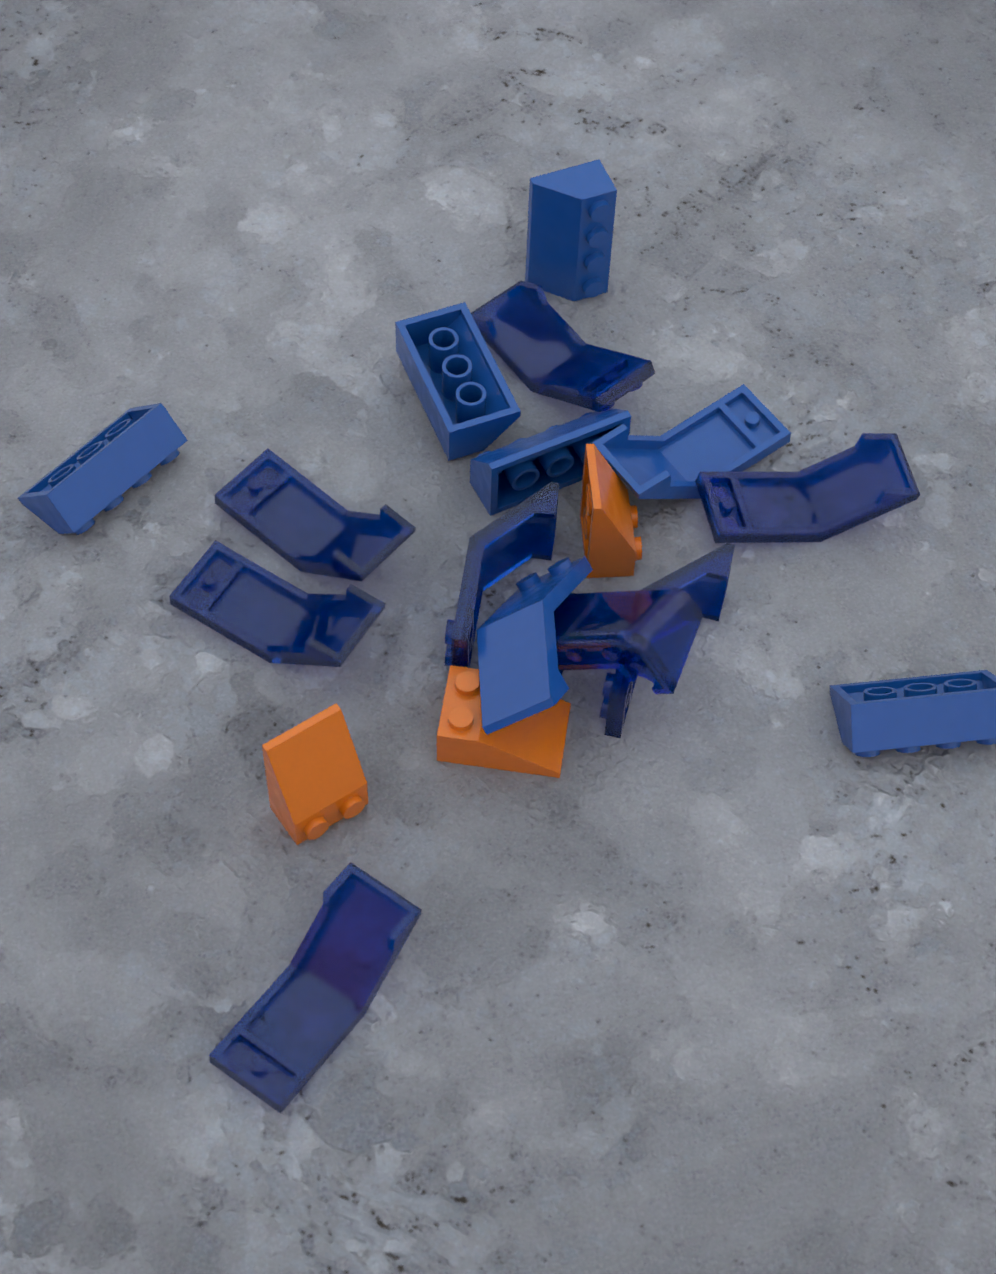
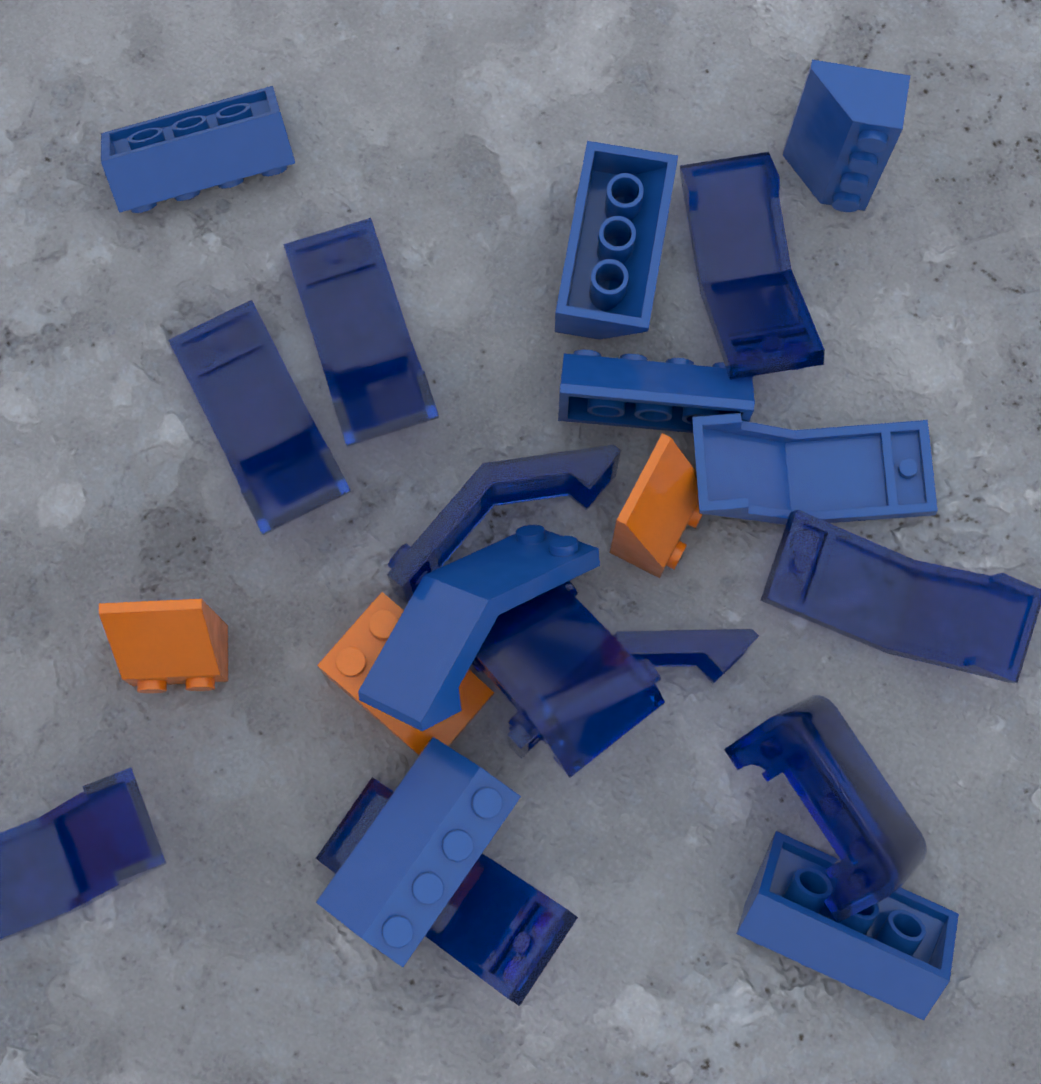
camera: 35 degrees right, 20 degrees up
(597, 816) = (418, 851): none -> blue slope
(632, 843) = (492, 921): none -> clear blue windscreen
(813, 590) = (844, 796): none -> clear blue windscreen

